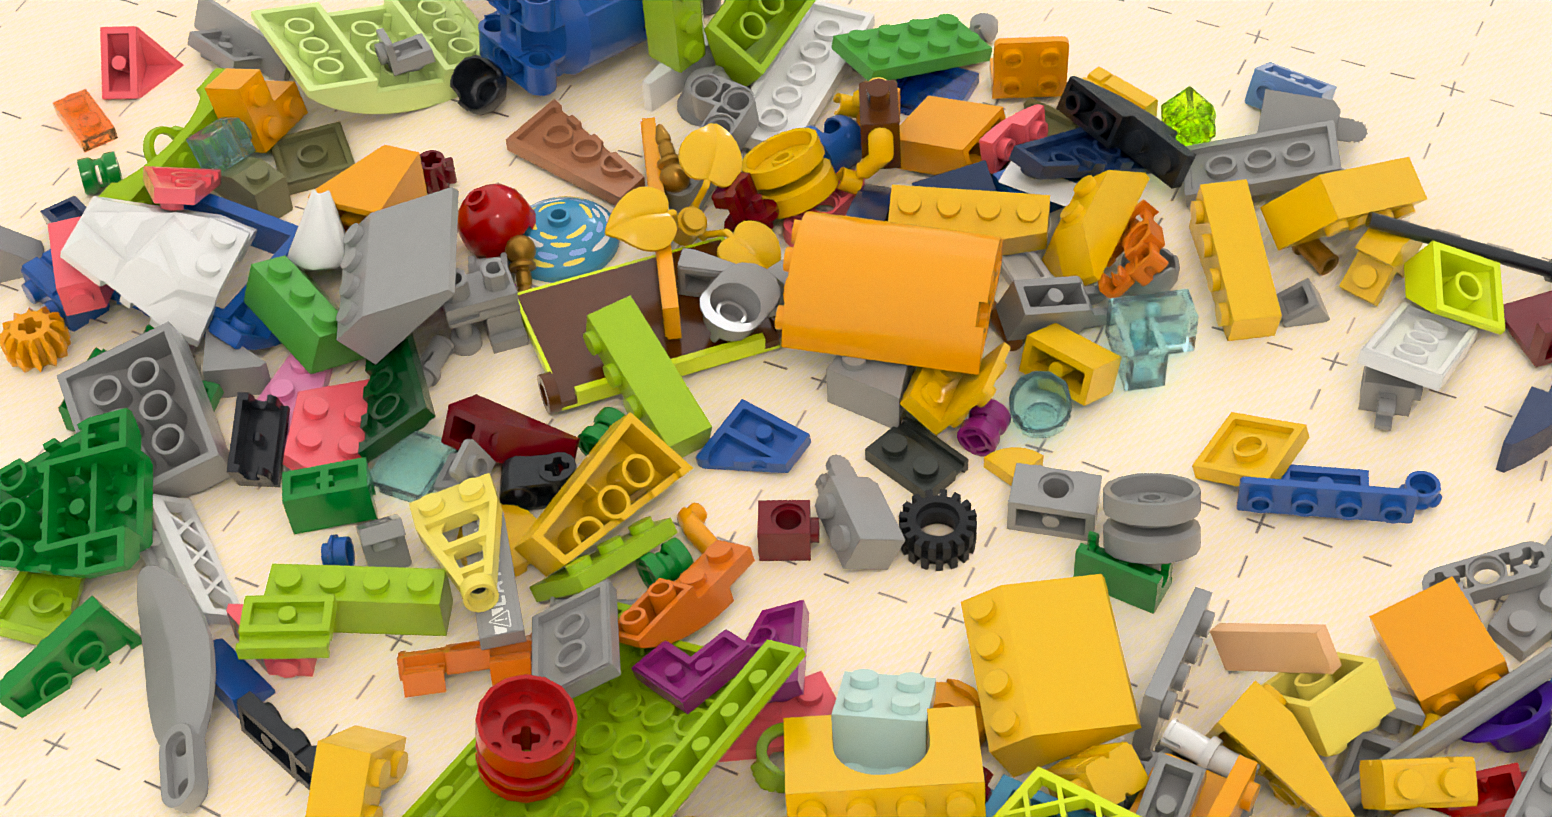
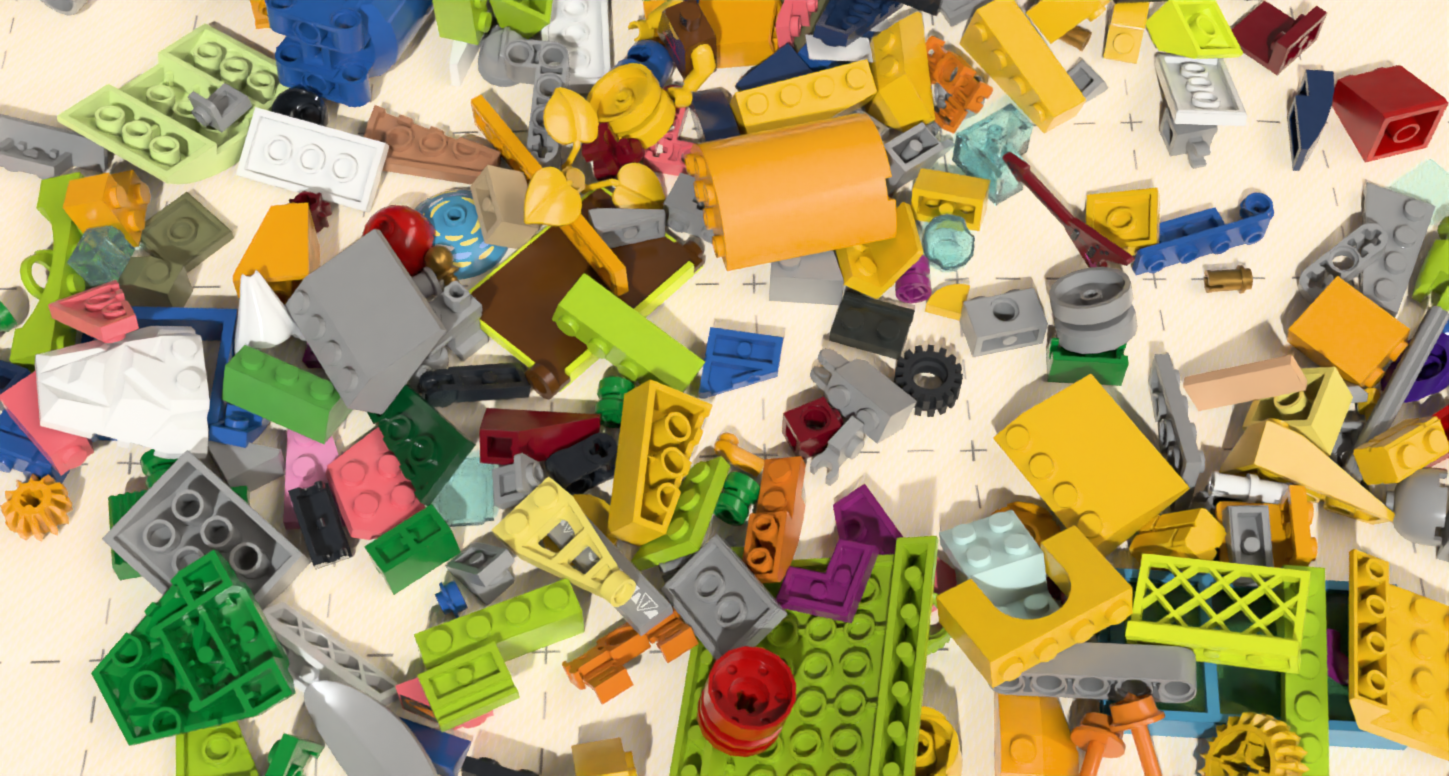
camera: 30 degrees left, 10 degrees up
(464, 126) = (312, 159): none -> white plate
(481, 370) = (474, 384): none -> black hinge
(591, 238) = (500, 207): none -> tan brick
(671, 173) = (535, 142): pearl gold bar -> none
(738, 301) = (664, 242): light grey piece -> none
(804, 558) = (843, 445): none -> light grey plate
(1193, 458) = (1091, 244): none -> dark red piece
(1340, 549) = (1228, 280): none -> pearl gold pin

